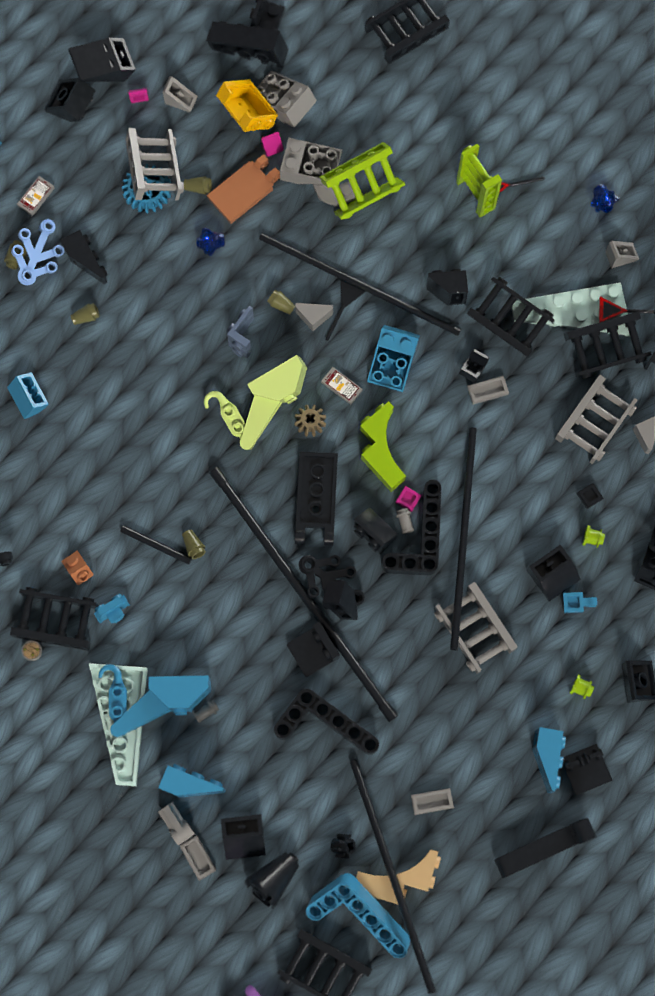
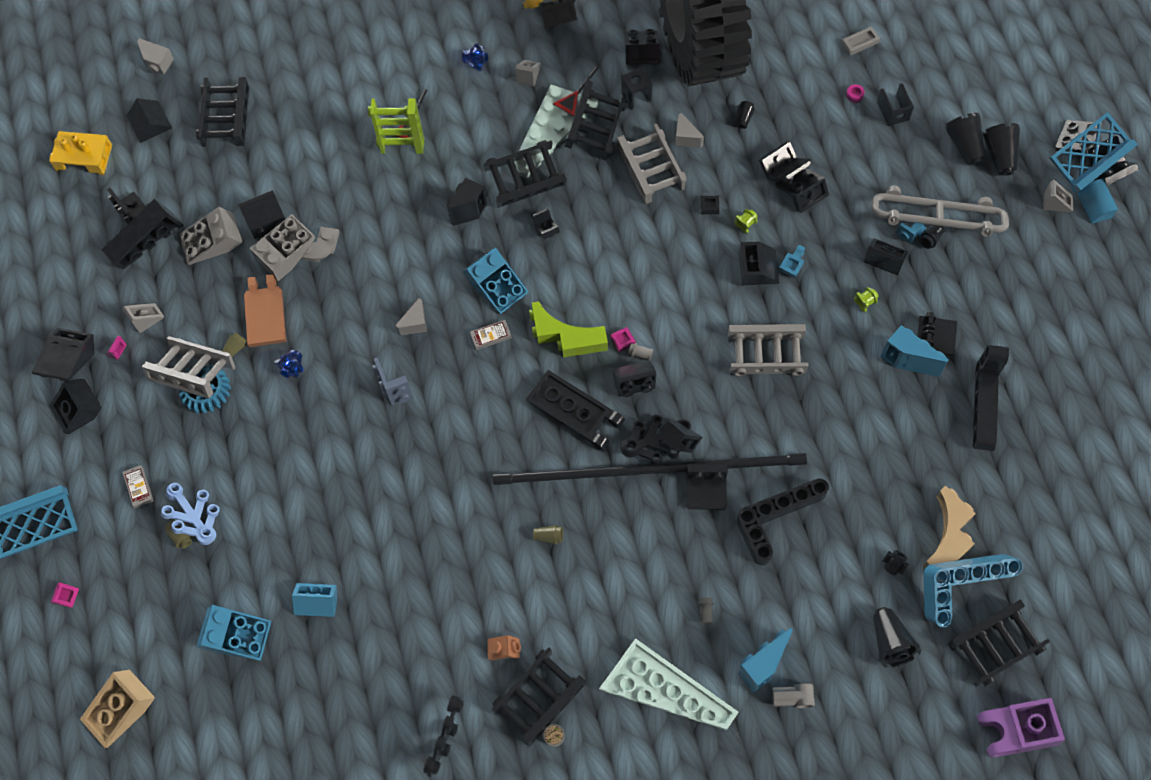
camera: 55 degrees left, 10 degrees down
(80, 254) = (221, 477): black slope -> none
(85, 314) = (278, 504): olive cone -> none
(112, 609) = (563, 639): dark azure piece -> none
(155, 544) = (527, 567): black bar -> none
(165, 694) = (672, 637): dark azure slope -> none
(198, 858) = (835, 696): light grey tile -> none
(243, 836) = (839, 642): black slope -> none
(247, 105) = (196, 264): yellow piece -> none
(269, 392) = (460, 392): yellowish green slope -> none
(272, 144) = (243, 268): dark pink slope -> none
(281, 302) = (385, 339): olive cone -> none
(310, 427) = (504, 368): dark tan gear -> none
(327, 126) = (262, 214): none -> black slope
(348, 171) = (315, 217): lime fence -> none
(348, 294) = (416, 286): black piece -> none
(362, 285) = (412, 272): black piece -> none
(393, 877) = (949, 534): black piece -> none
(426, 536) = (664, 343): black beam -> none
(432, 801) = (895, 469): light grey tile -> none
(463, 539) = (688, 315): black piece -> none
(488, 390) = (571, 228): light grey tile -> none

